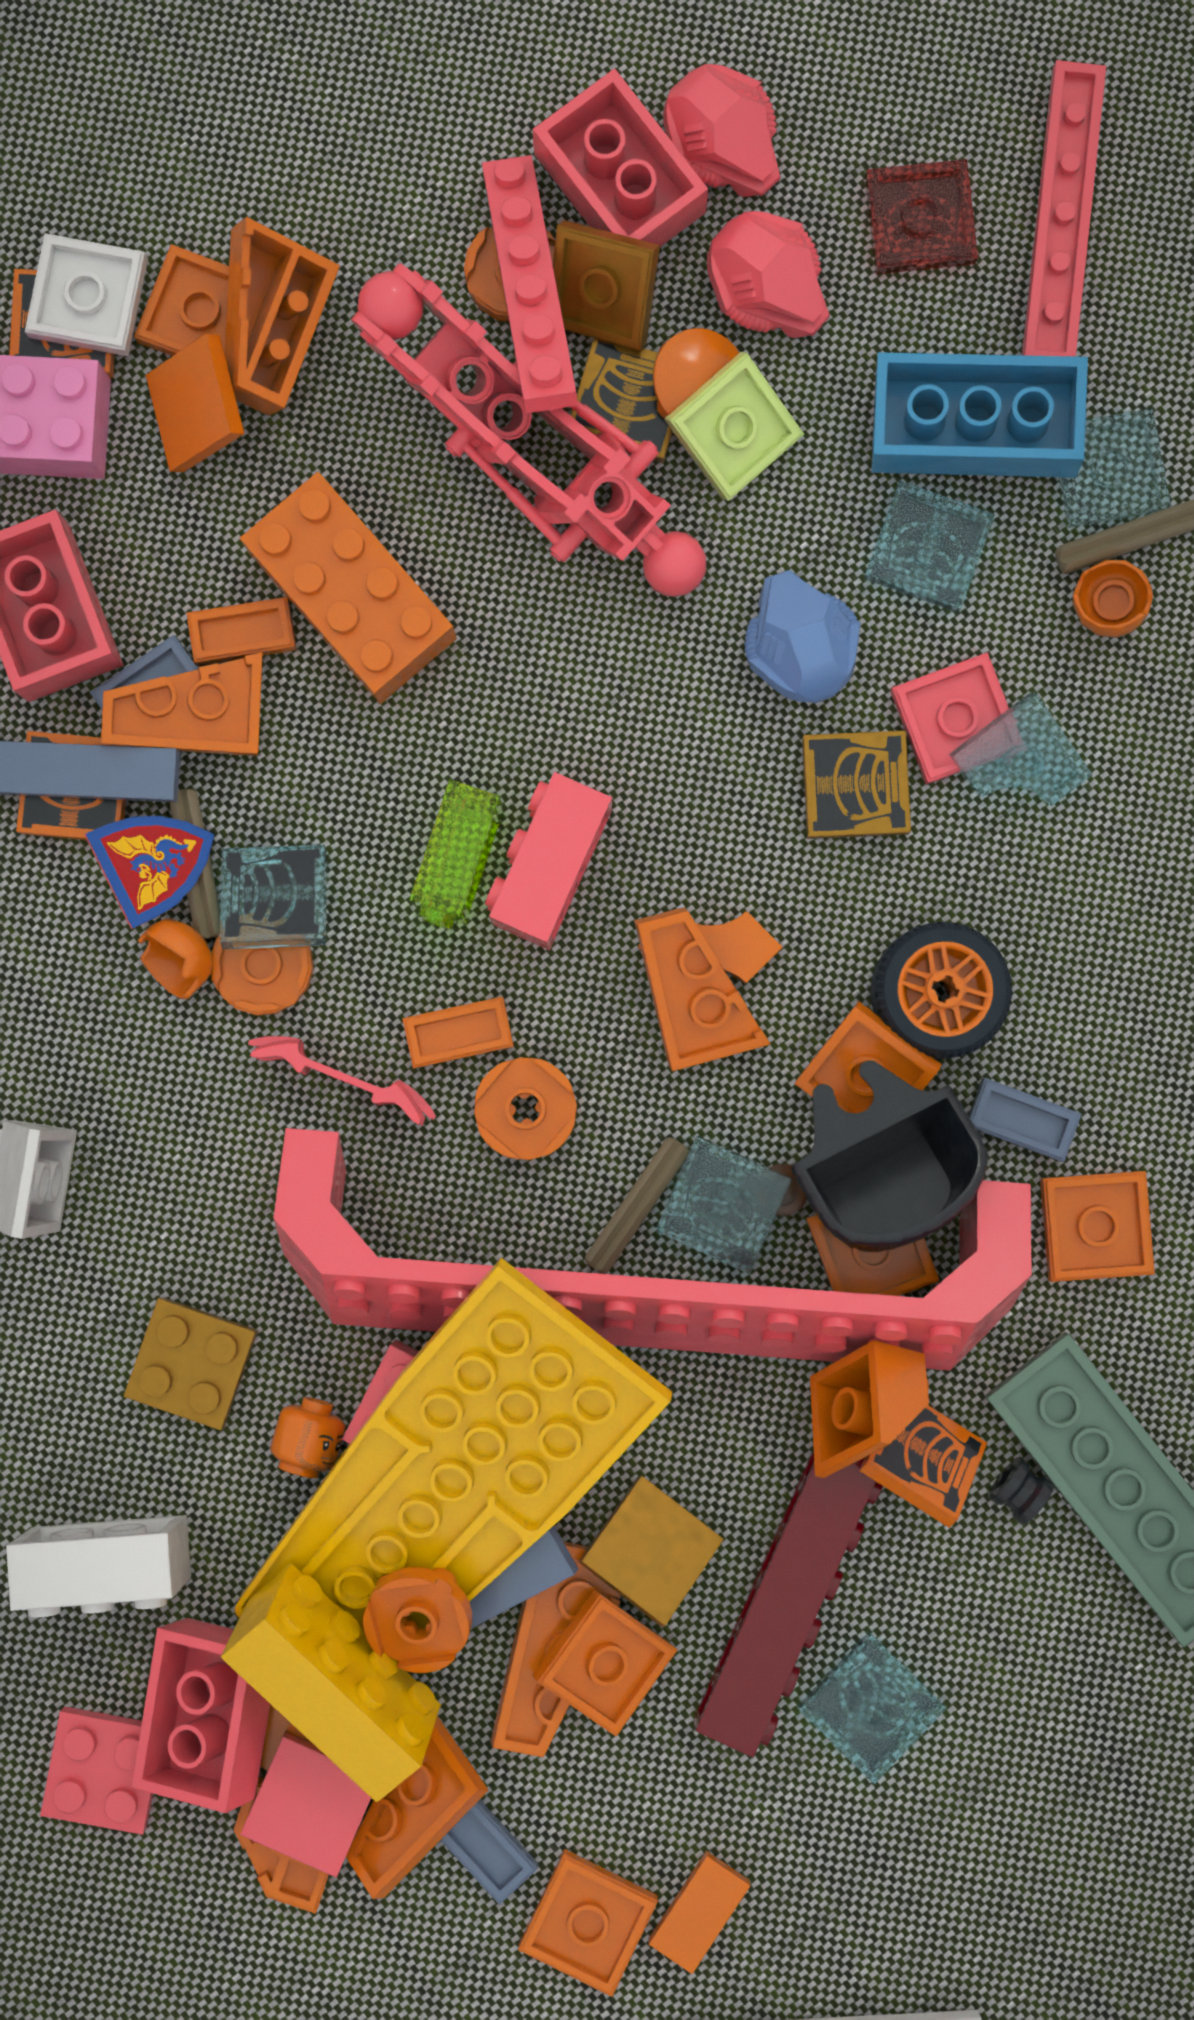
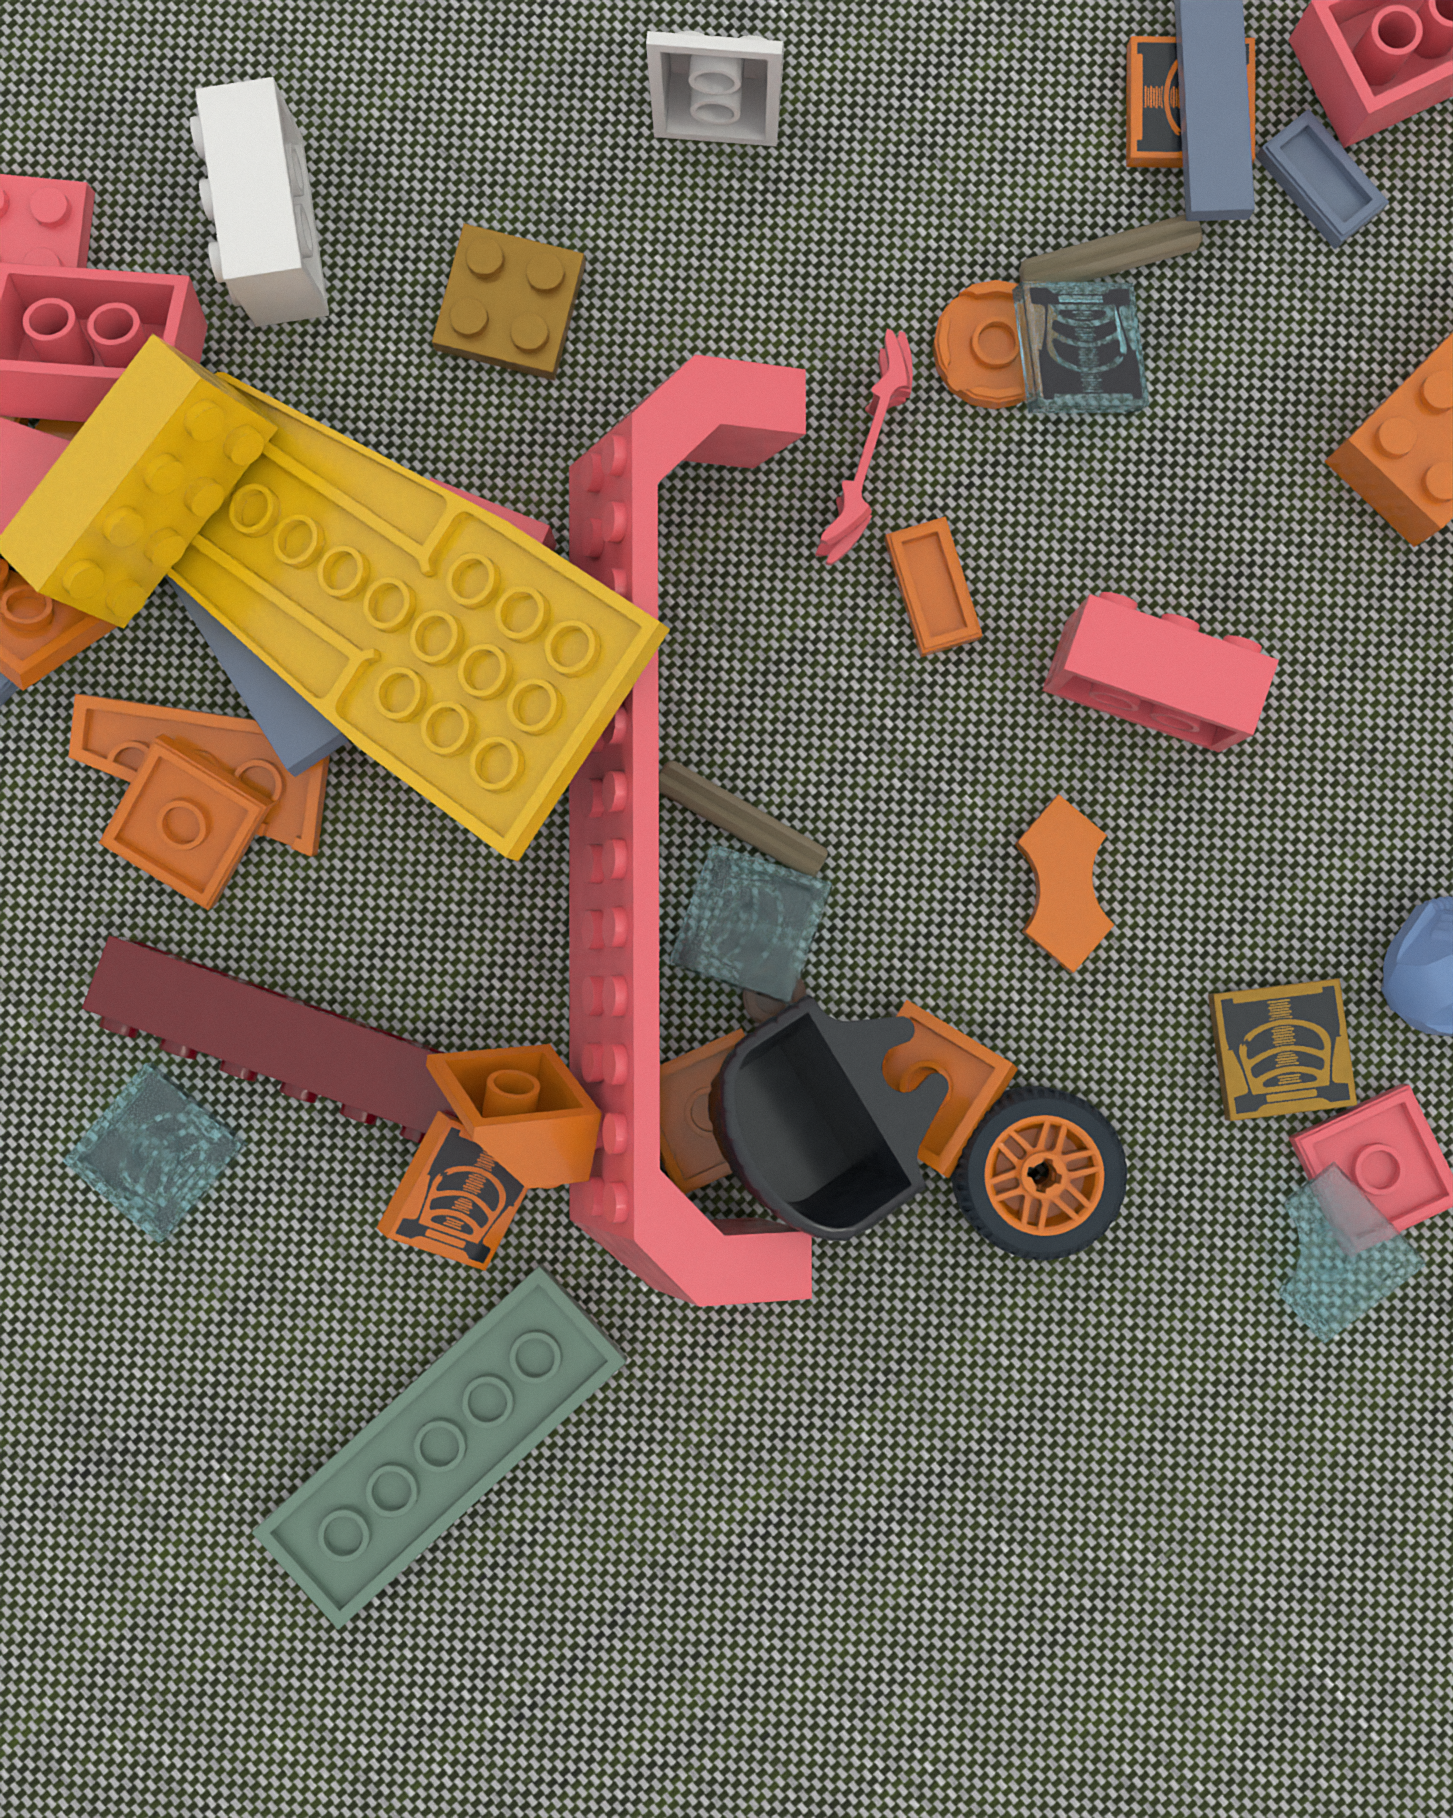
camera: 85 degrees right, 0 degrees up
(150, 862) = (1112, 188): shield -> none
(176, 957) = (998, 237): orange hair -> none
(190, 711) = (1299, 234): orange wing -> none
(241, 630) = (1399, 285): orange tile -> none
(307, 1438) = (431, 439): orange head -> none
(422, 1591) = (250, 594): orange plate -> none
(456, 854) = (1157, 557): clear neon green window -> none
(495, 1108) = (840, 638): orange plate -> none
(651, 1550) = (324, 867): pearl gold tile -> none
(691, 993) = (1007, 864): orange wing -> none
(1021, 1490) = (428, 1316): black wheel -> none
(1023, 1119) = (884, 1288): sand blue tile -> none
(1097, 1226) = (760, 1389): orange tile -> none

